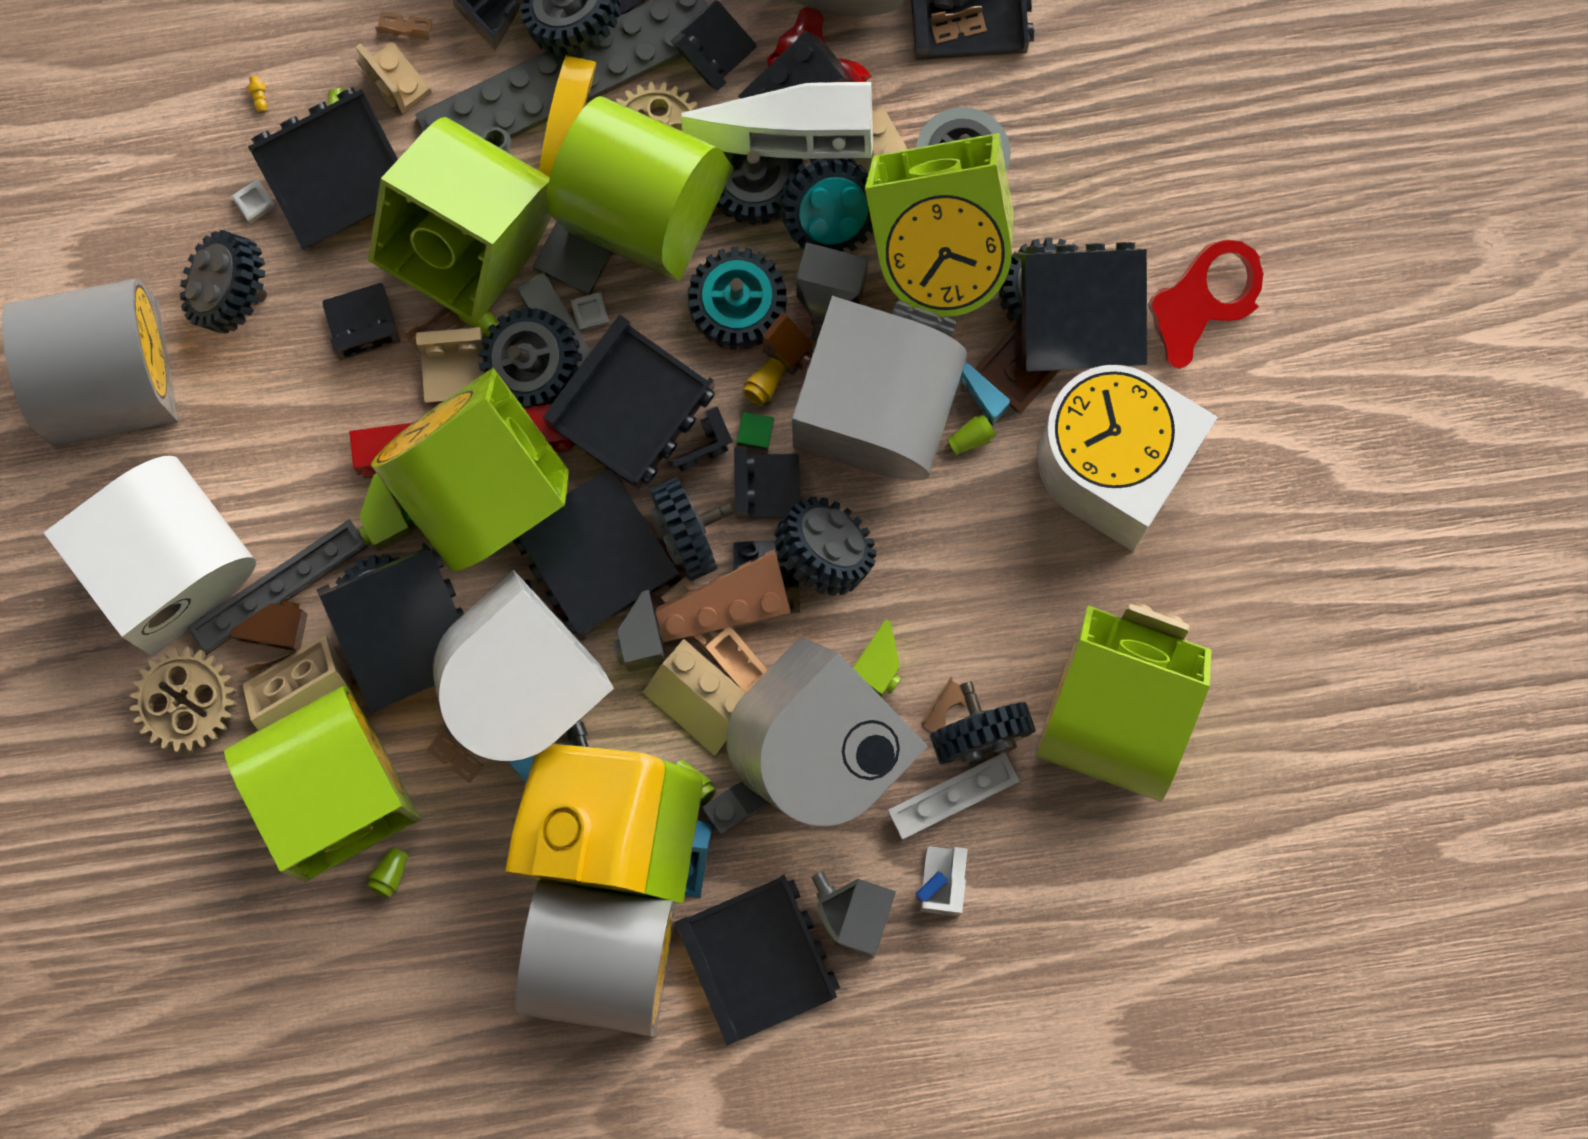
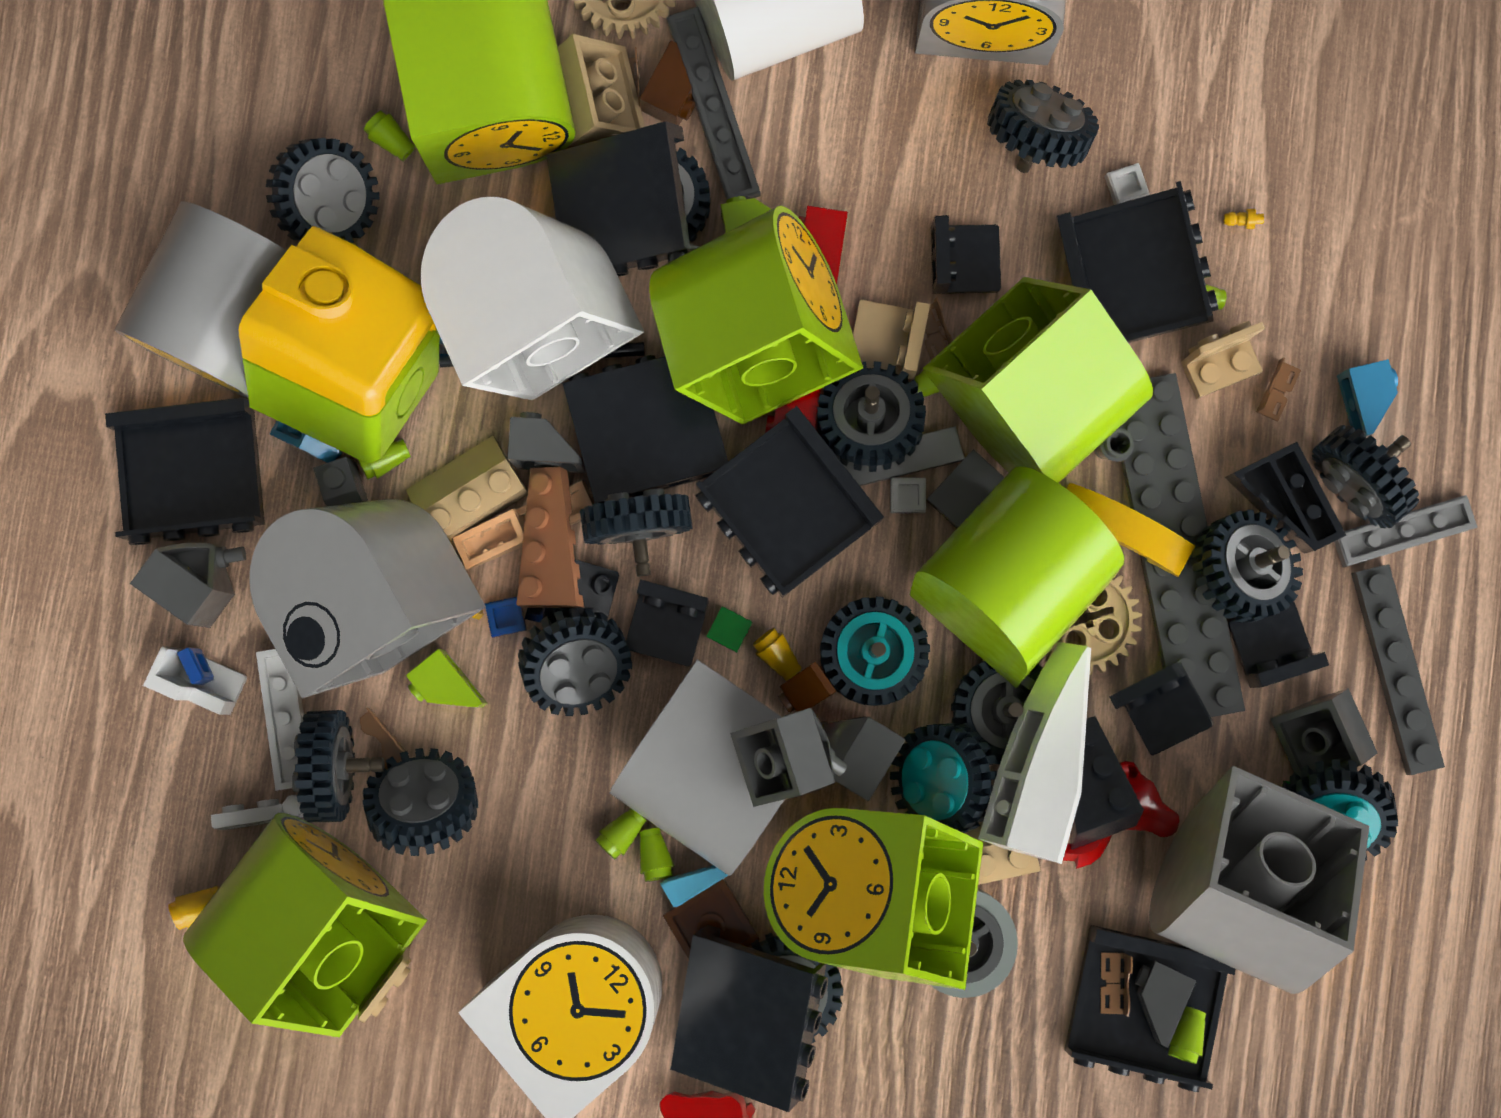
camera: 105 degrees right, 5 degrees up
(463, 906) = (322, 187): none -> wheel
(713, 426) = (718, 575): black bracket -> none
(803, 625) = (505, 617): none -> blue tile
(853, 315) = (786, 757): none -> dark grey piece
(924, 317) = (770, 838): dark grey axle -> none
(963, 470) = (620, 833): none -> lime cone
(987, 641) = (420, 801): none -> wheel
(1041, 784) = (236, 817): none -> white hinge
(1143, 820) = (188, 906): none -> yellow cone

